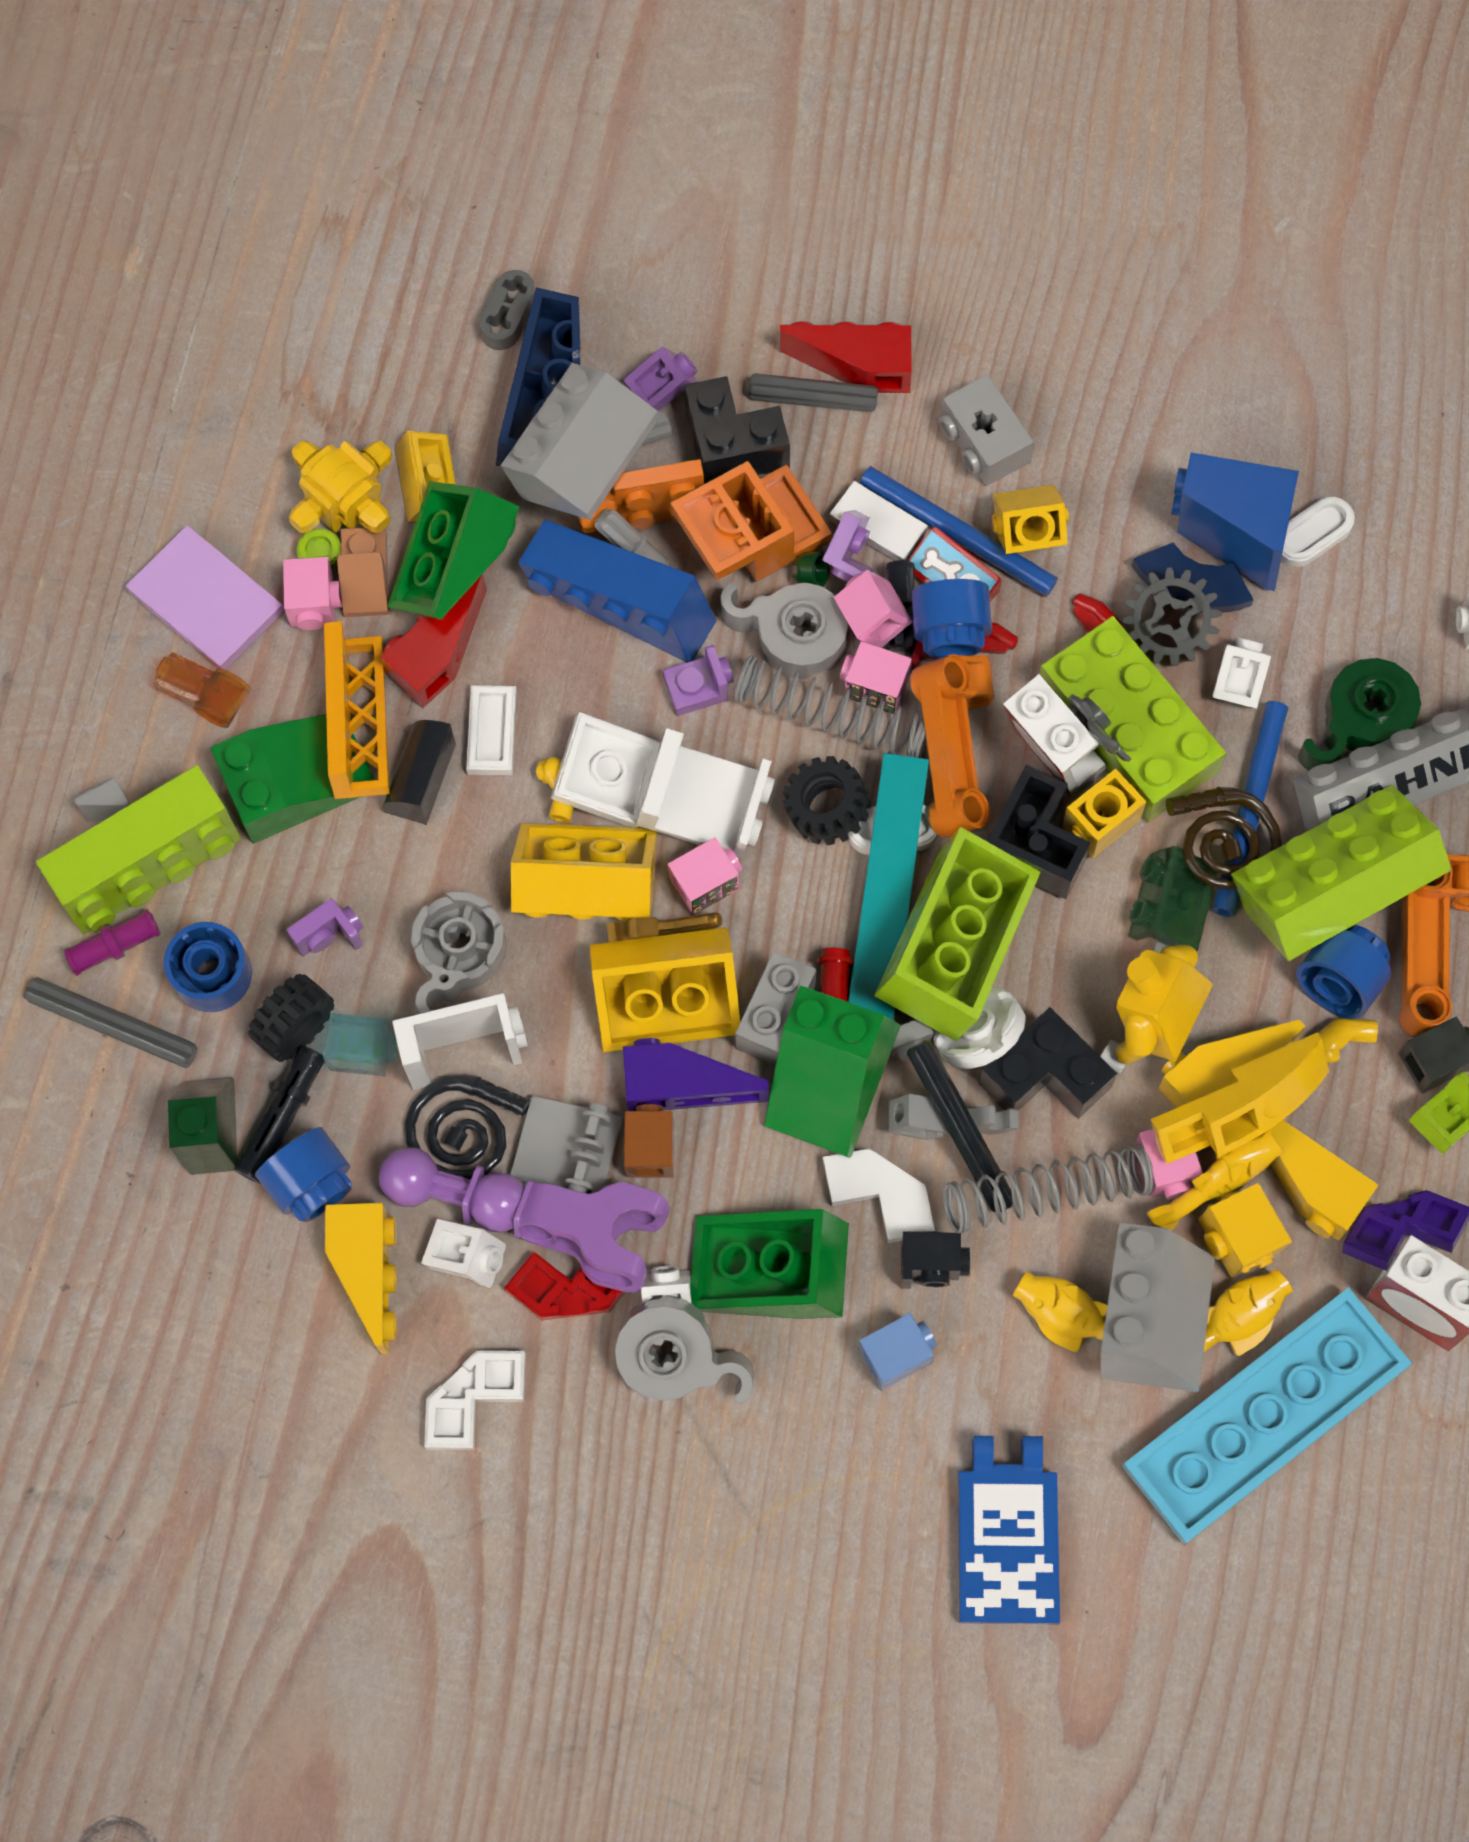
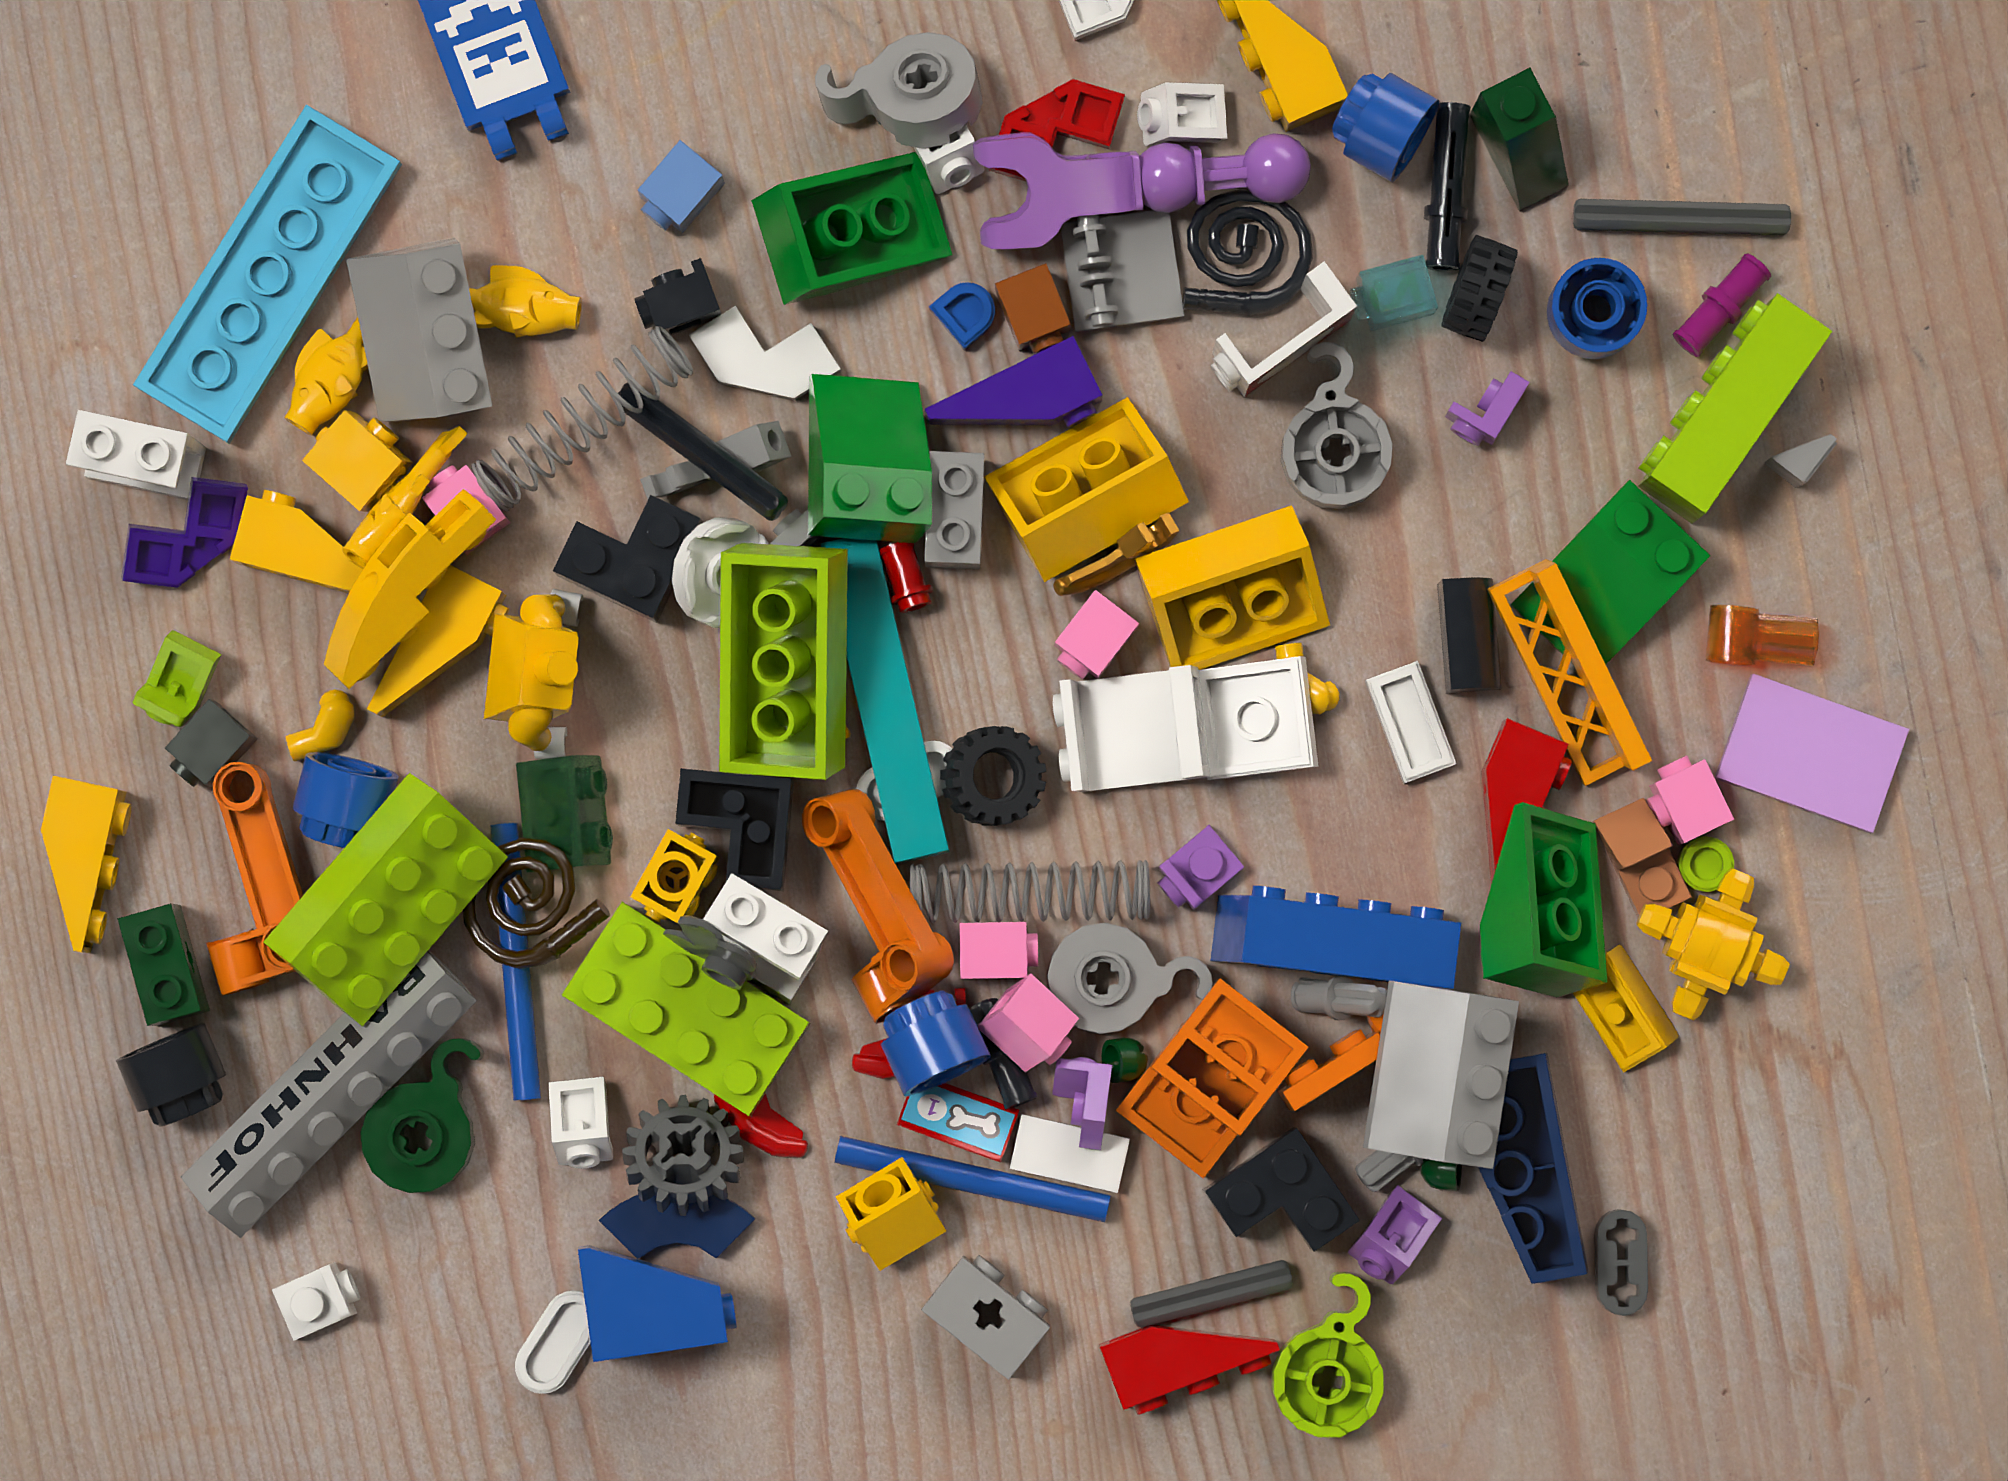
camera: 155 degrees right, 15 degrees up
(704, 1166) = (965, 312): none -> blue tile
(746, 323) = (1336, 1345): none -> lime piece

